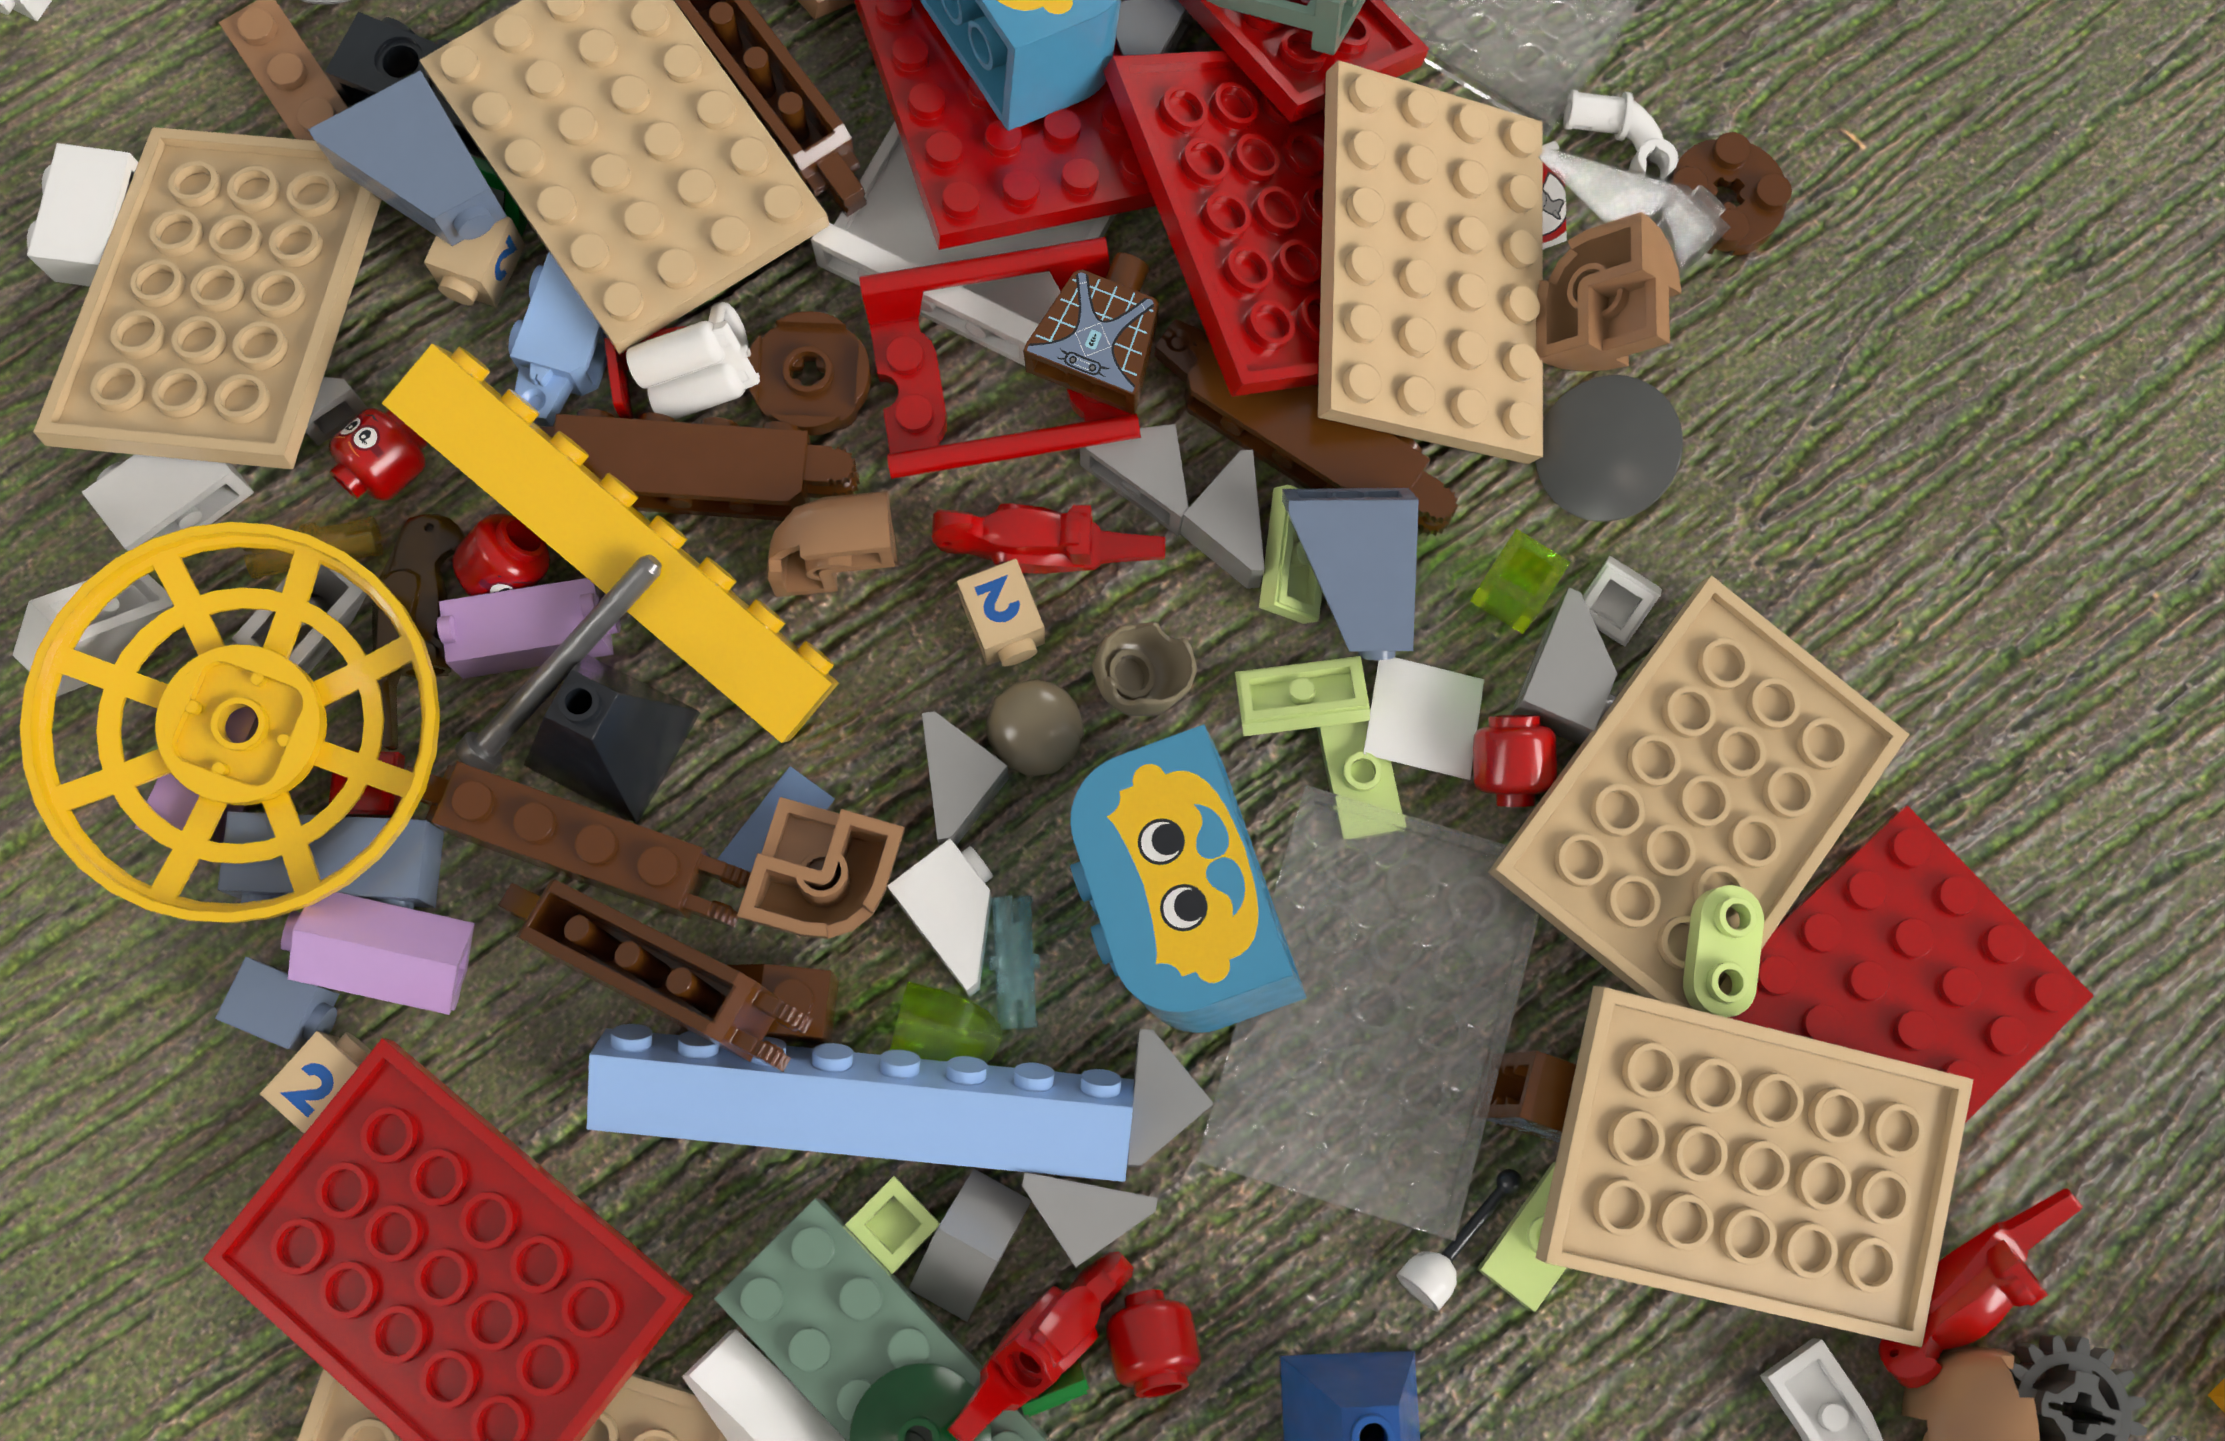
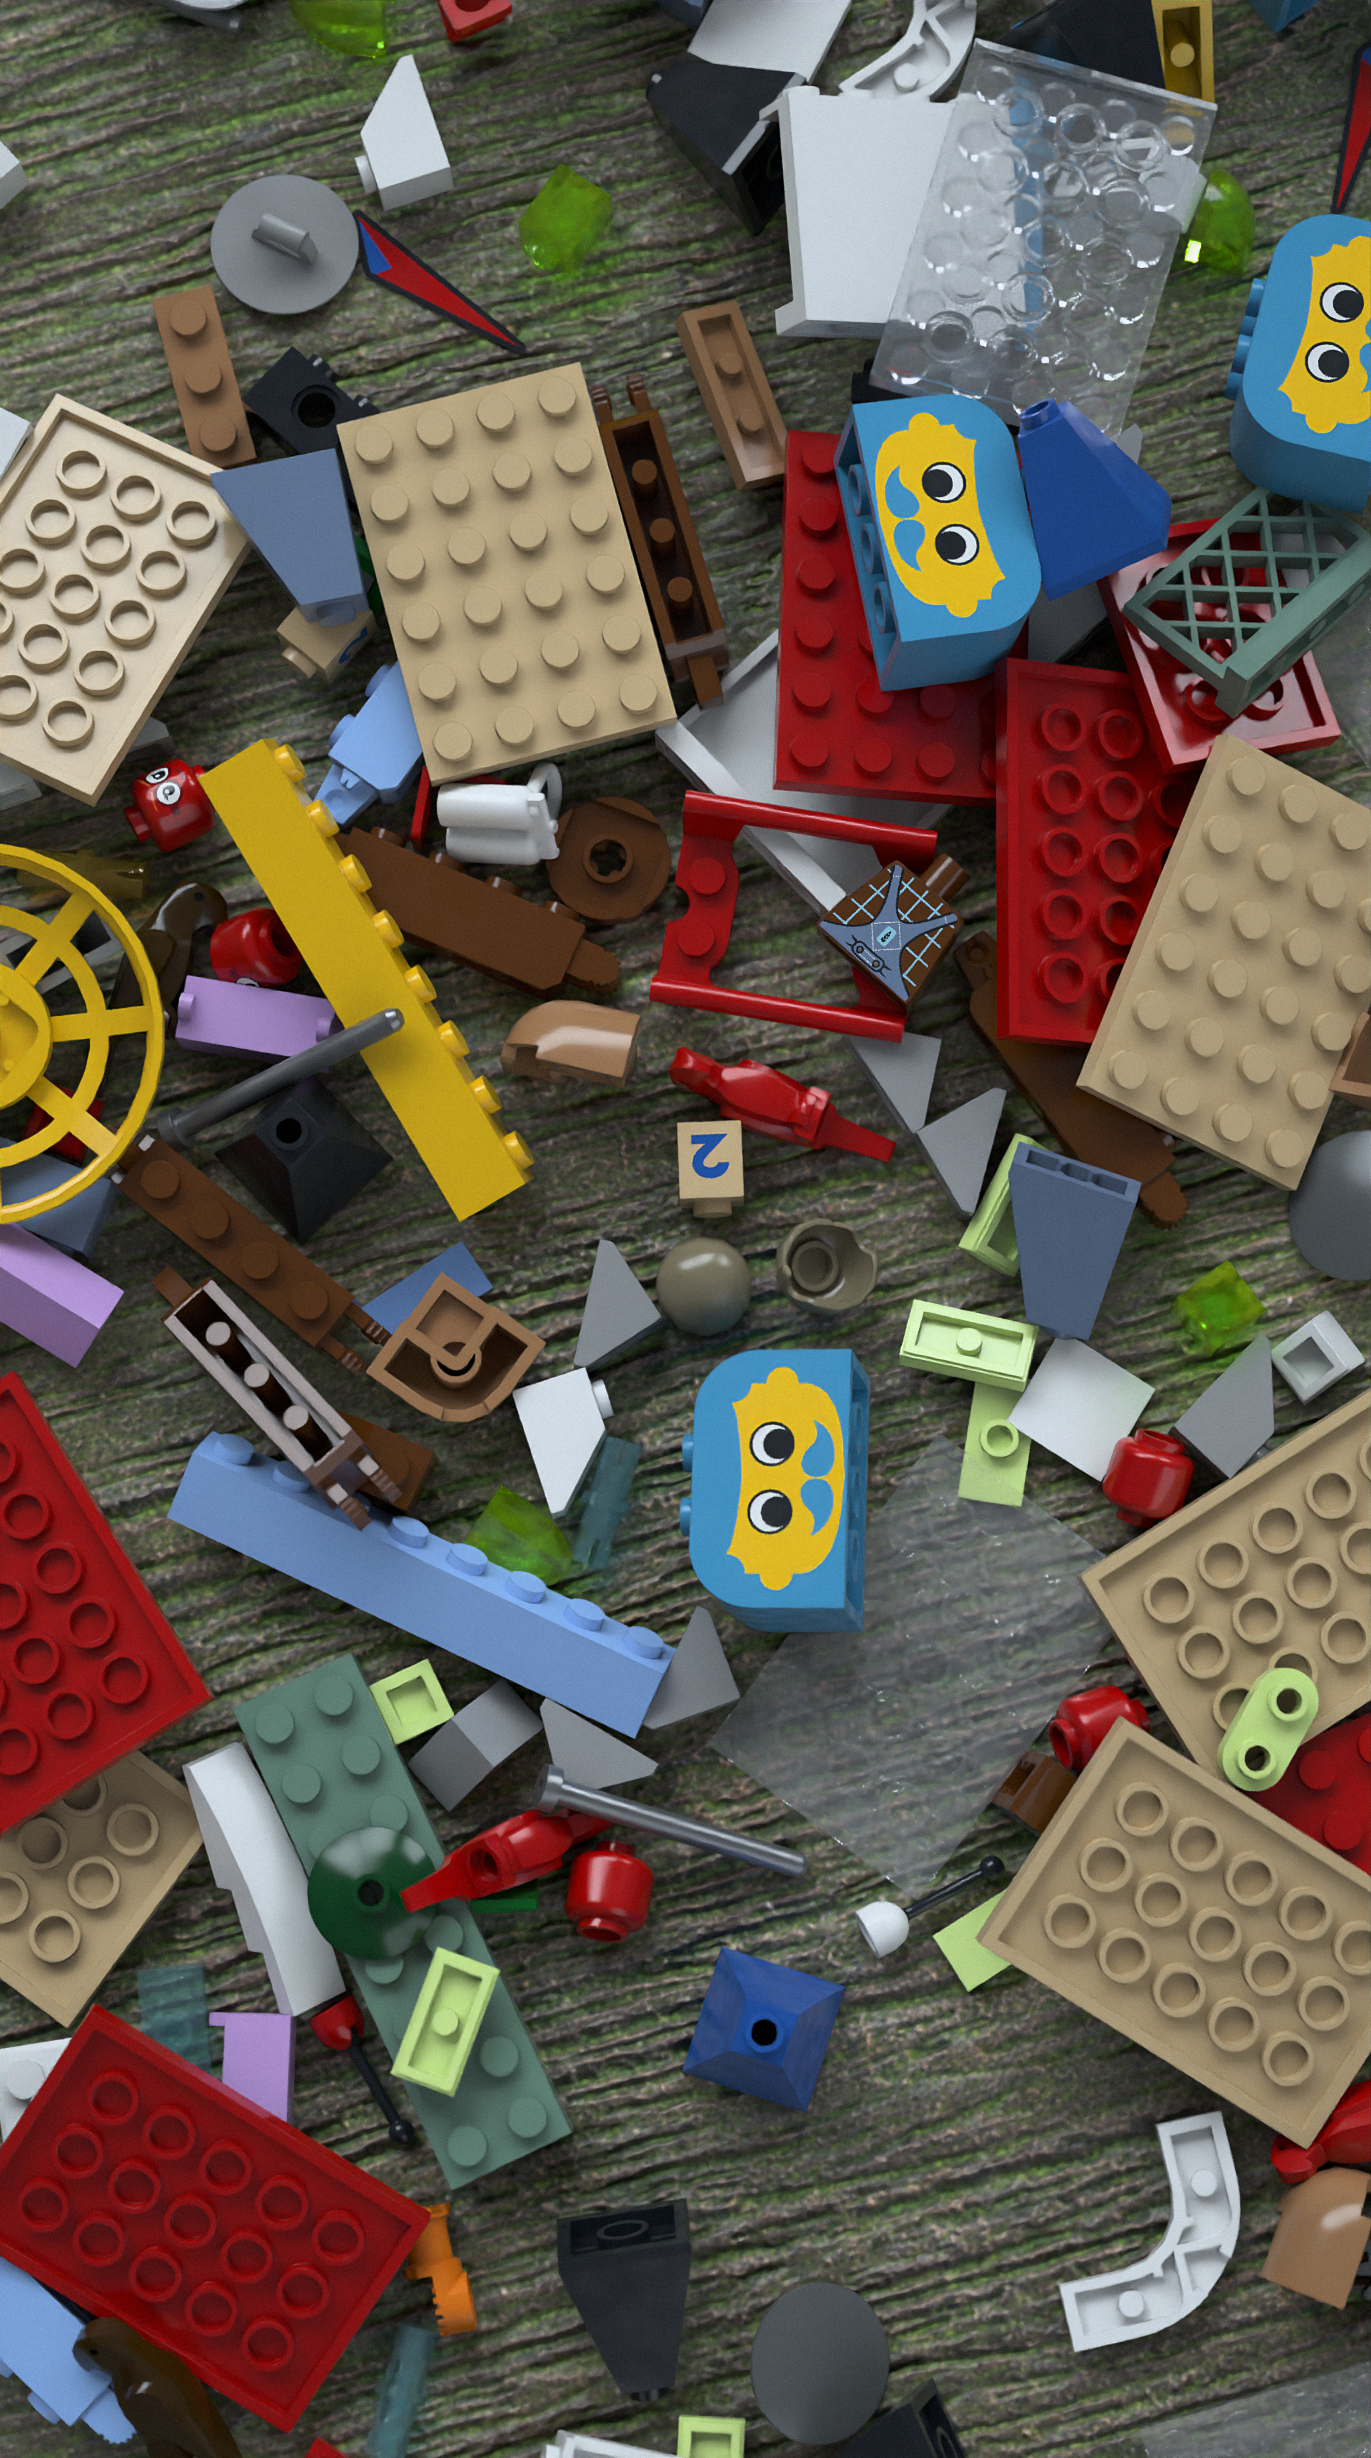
camera: 30 degrees right, 5 degrees up
(1065, 1263) = (554, 1790): none -> flat silver bar
(1554, 1011) = (1085, 1721): none -> red head

